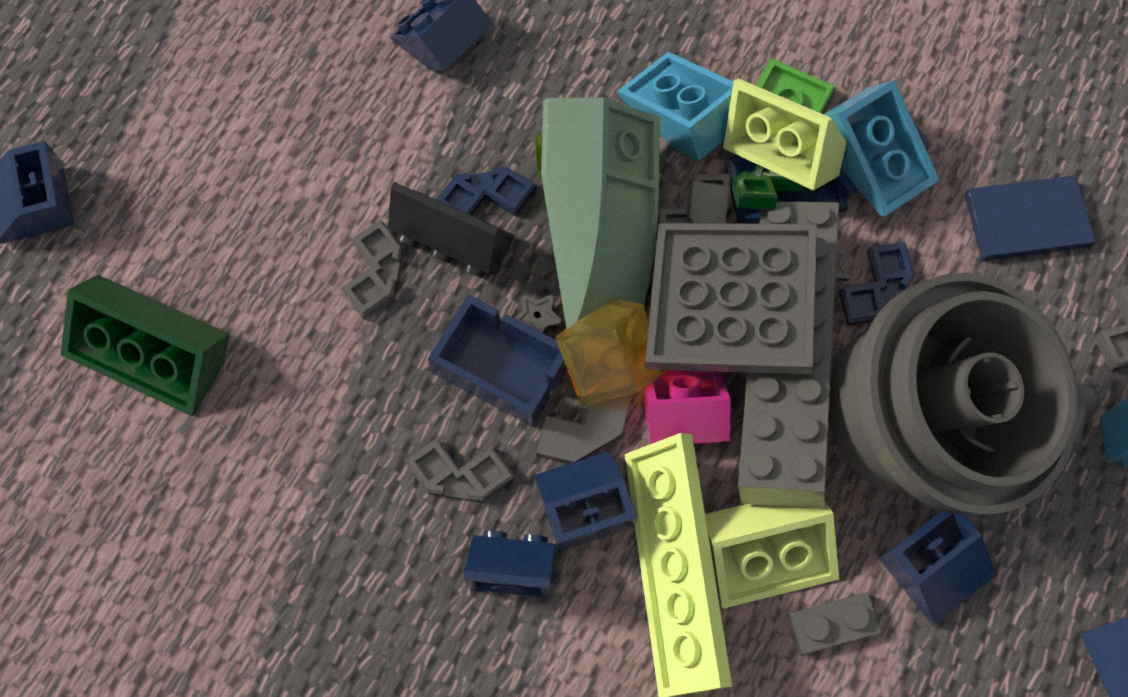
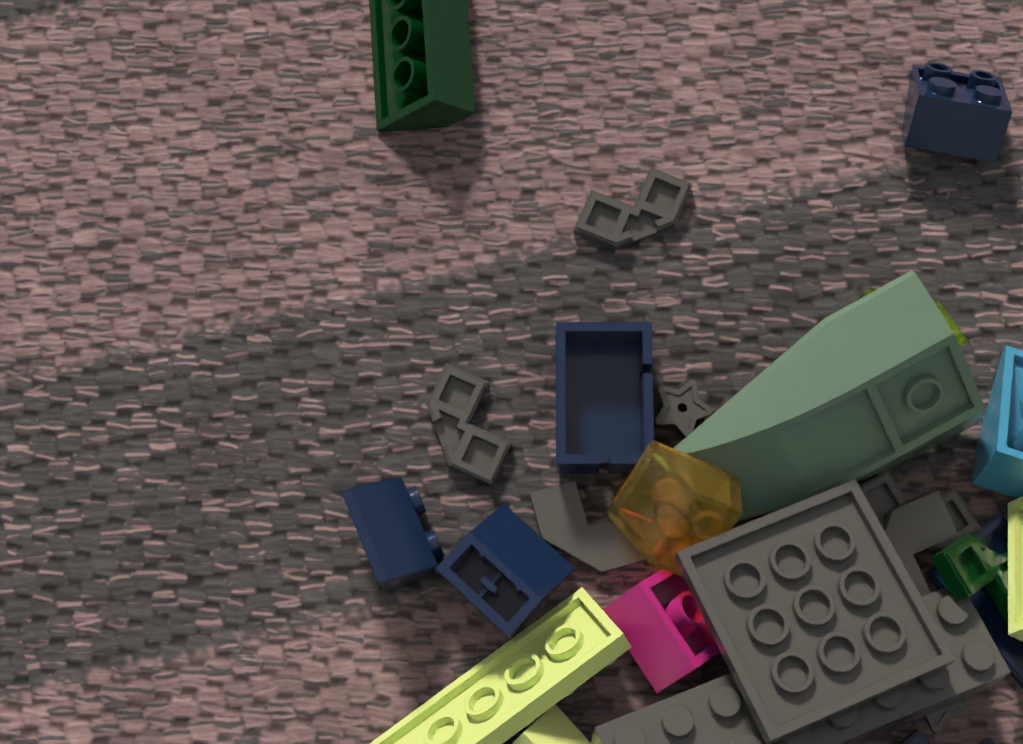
camera: 65 degrees right, 5 degrees up
(447, 231) = (717, 259): black slope -> none
(499, 186) = (782, 255): dark blue tile -> none

